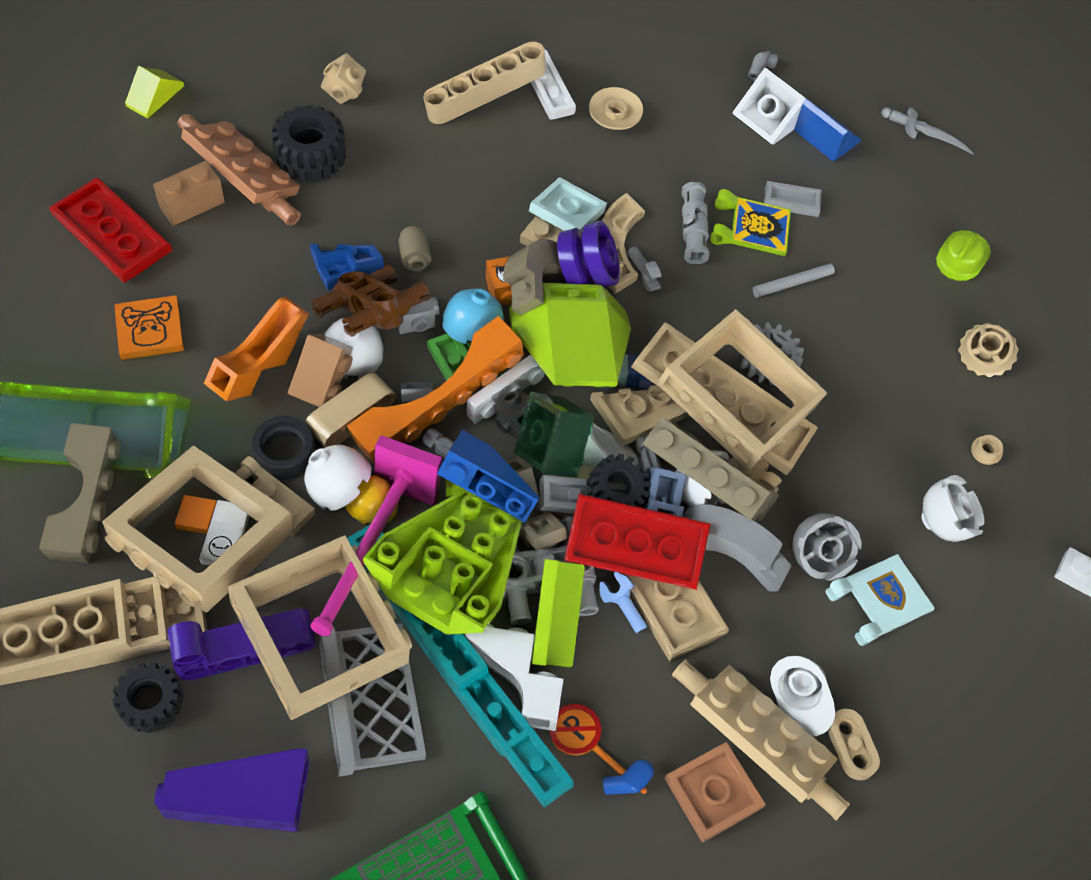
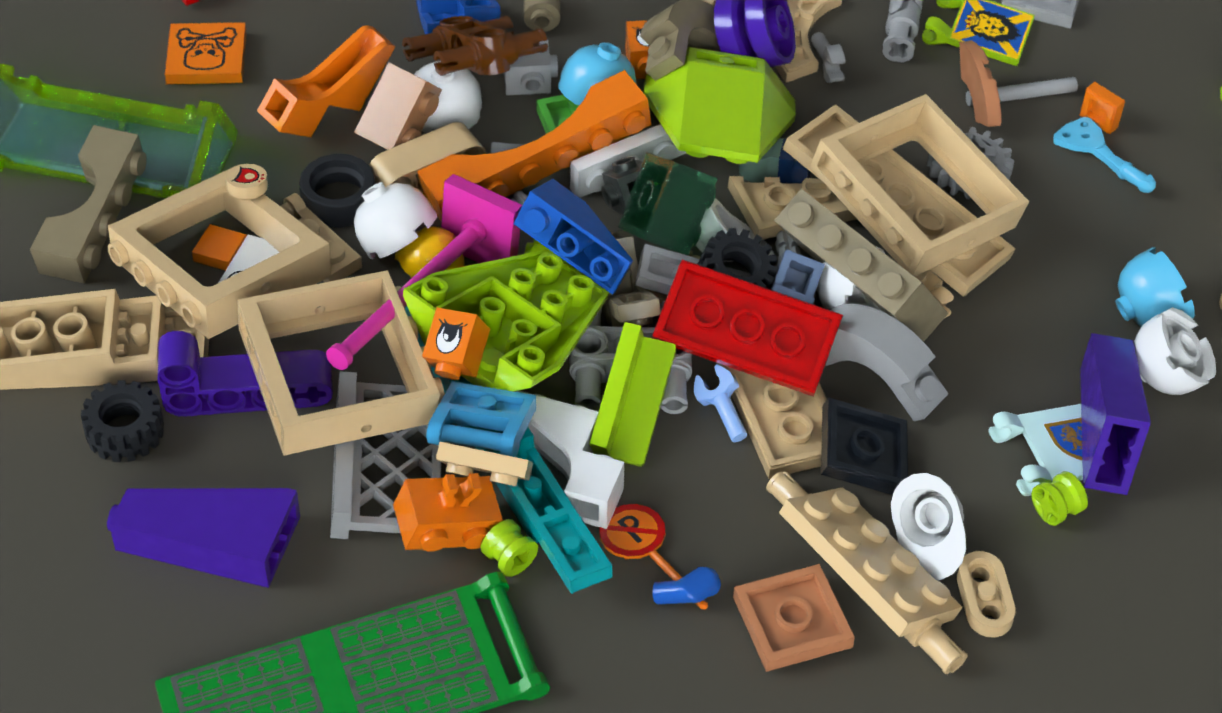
camera: 15 degrees right, 10 degrees down
(210, 460) = (246, 181): none -> tan tile
(414, 601) = (455, 343): none -> orange brick
(432, 748) = (446, 512): none -> orange brick
(446, 652) = (482, 408): none -> dark azure plate
(460, 703) = (465, 460): none -> tan wing
(485, 767) = (509, 548): none -> lime wheel
(739, 627) = (863, 446): none -> black tile
(766, 282) = (980, 84): none -> nougat tile
(826, 546) = (994, 370): light grey cylinder -> none
(857, 290) = (1102, 107): none -> orange tile
(858, 323) = (1087, 136): none -> medium azure piece
(891, 649) = (1059, 498): none -> lime wheel
(919, 570) = (1111, 414): none -> dark purple slope
(927, 455) = (1150, 287): none -> medium azure cylinder

